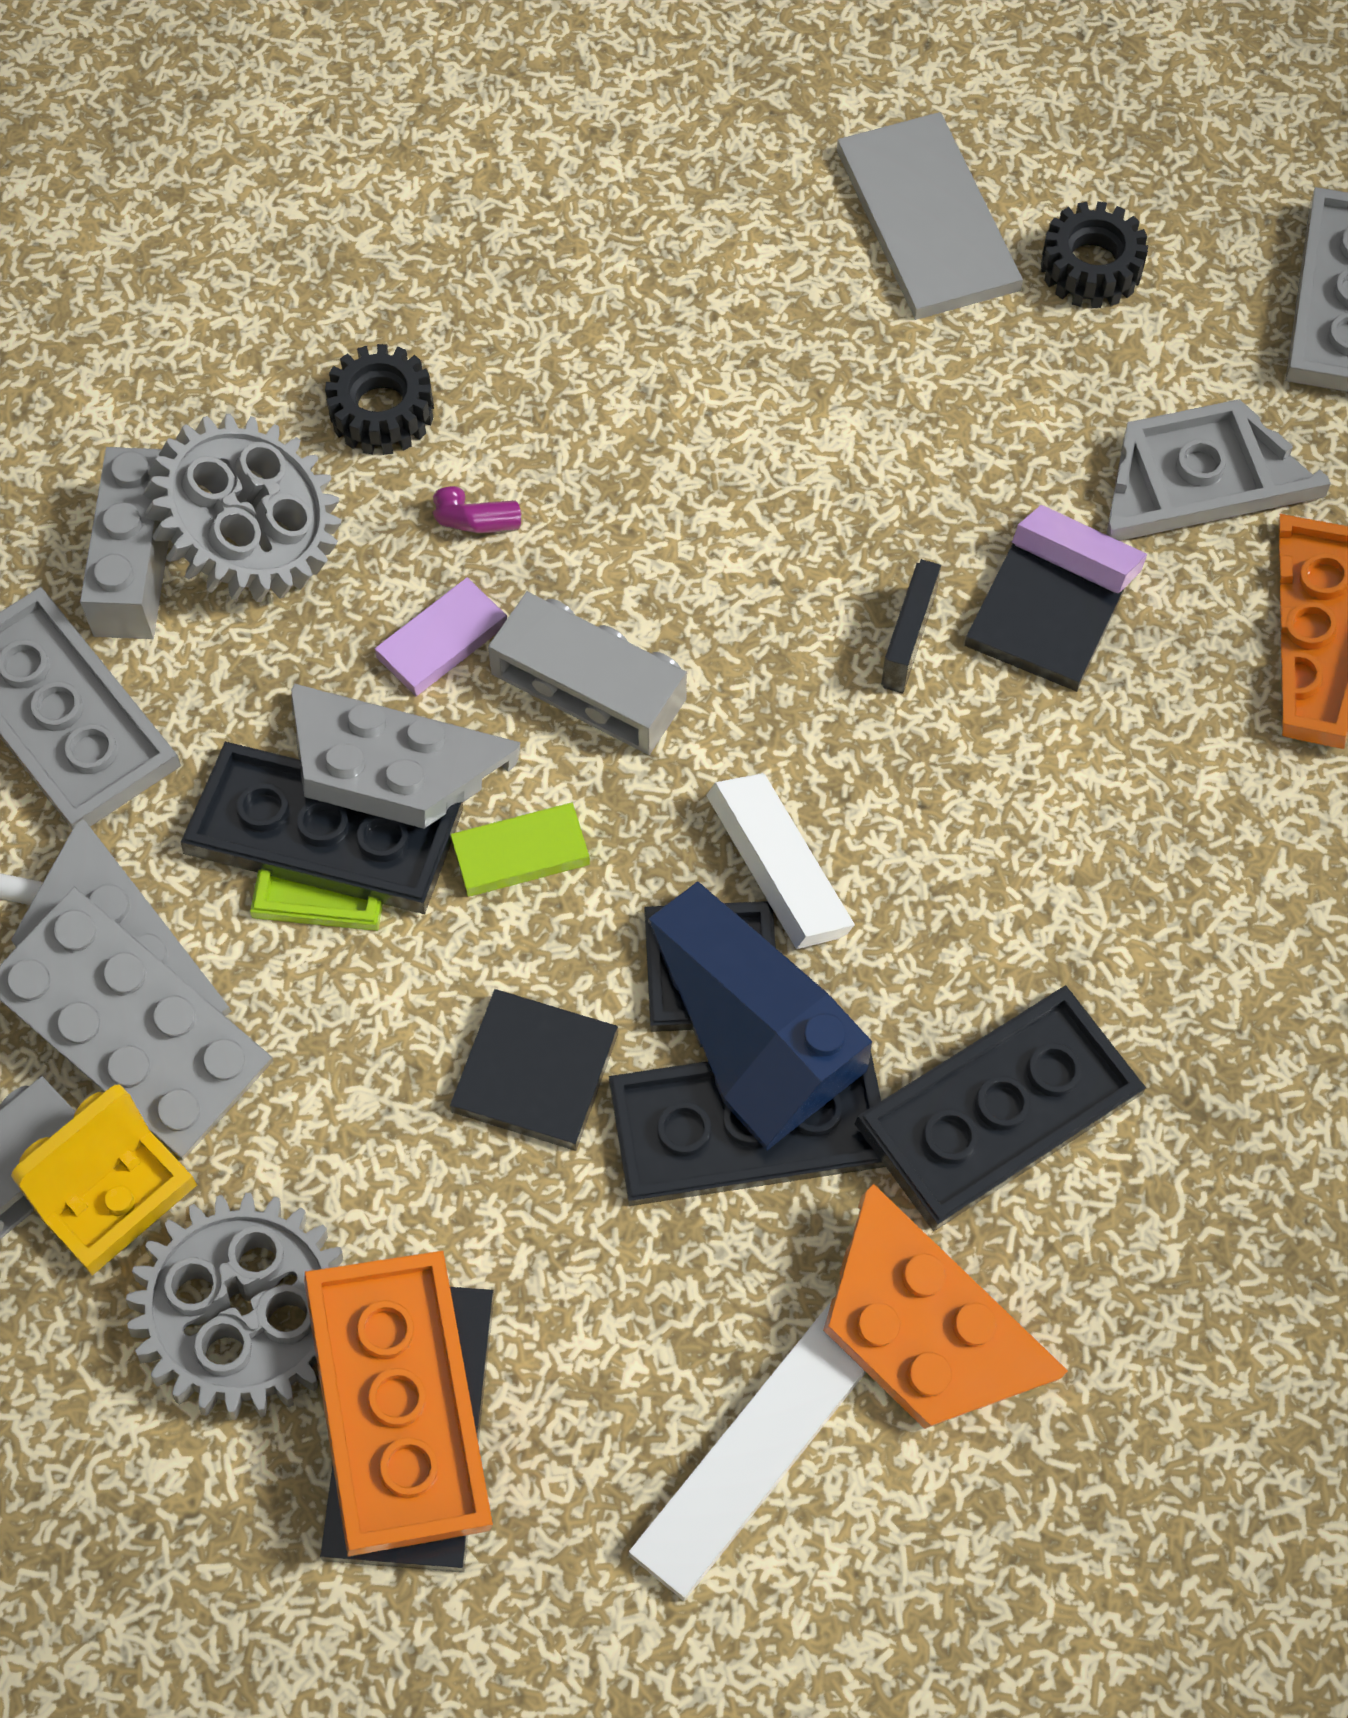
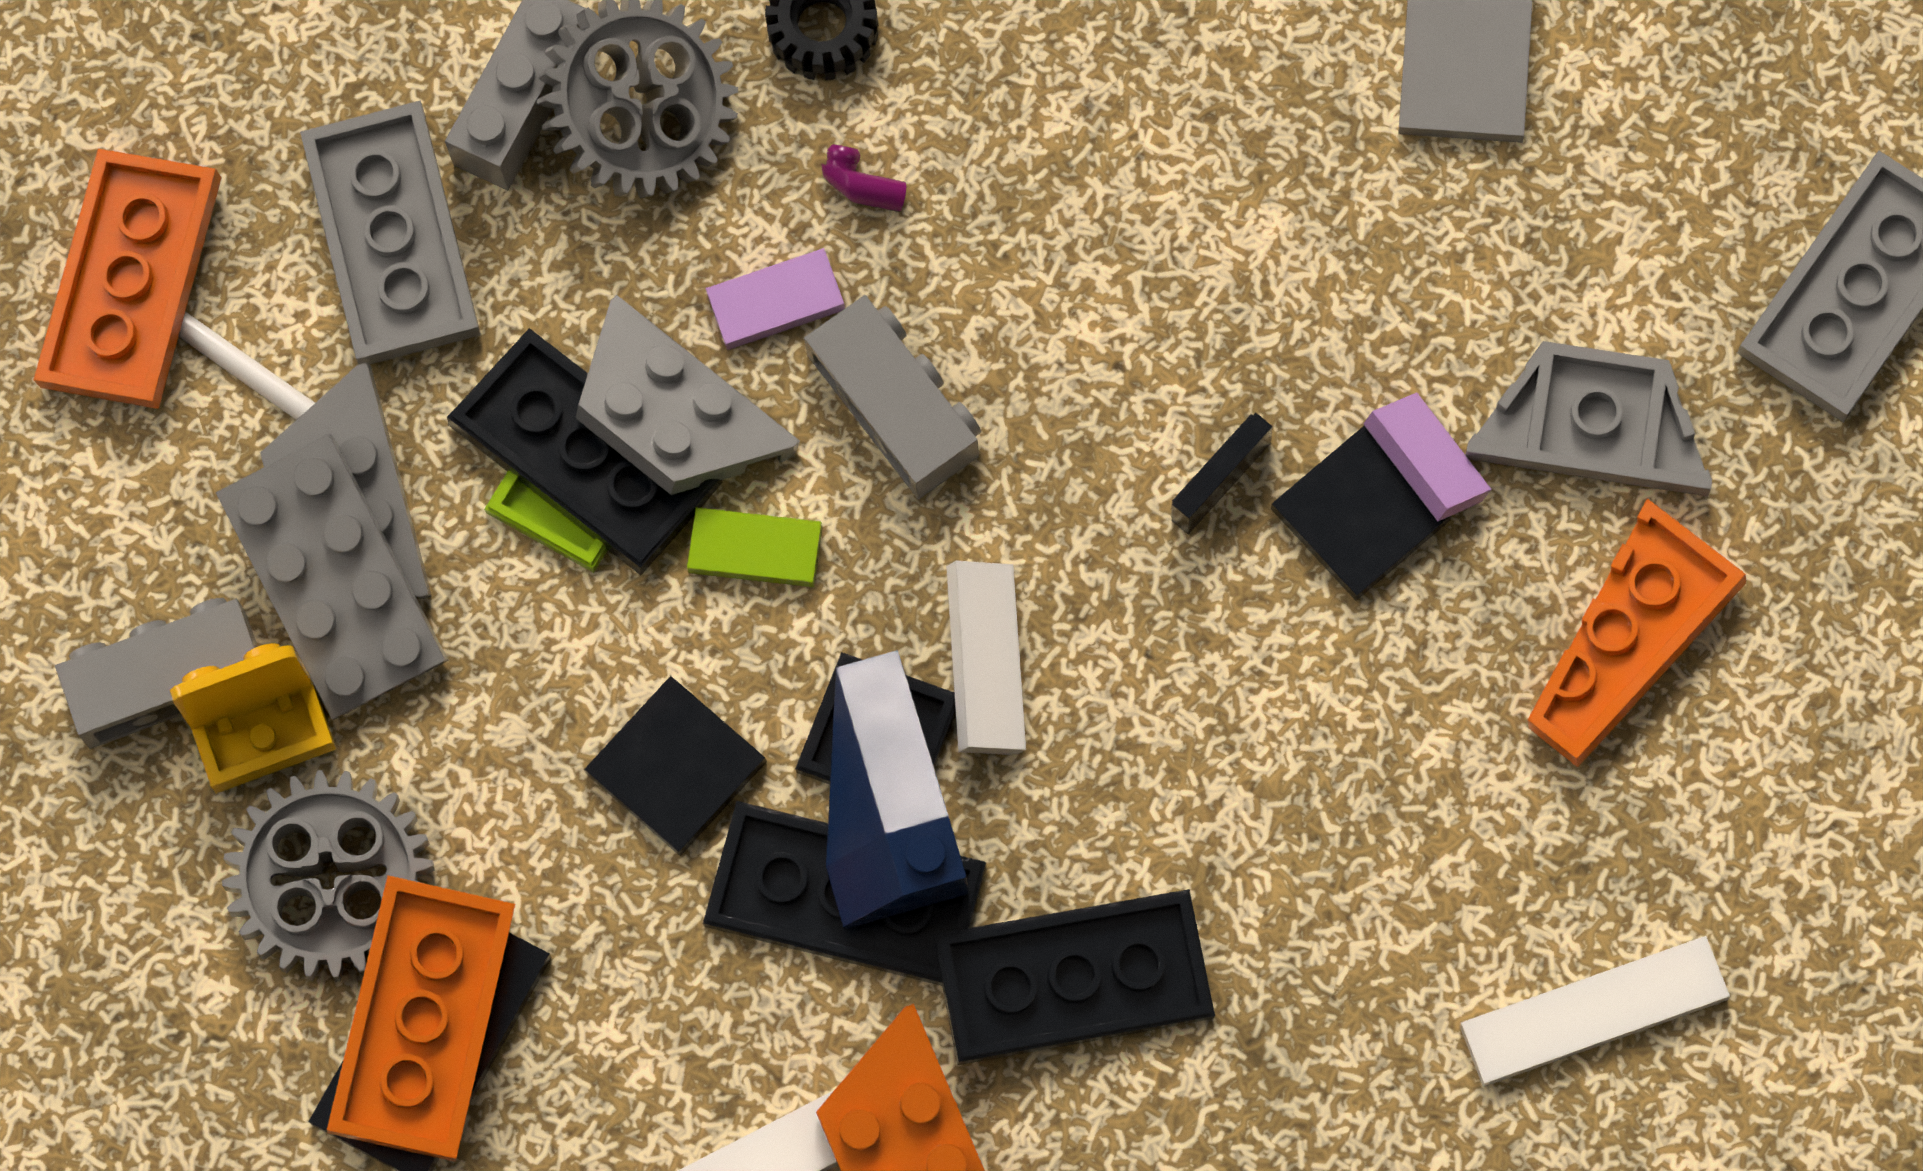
camera: 30 degrees right, 10 degrees up
(1097, 229) = (1610, 102): black tyre -> none

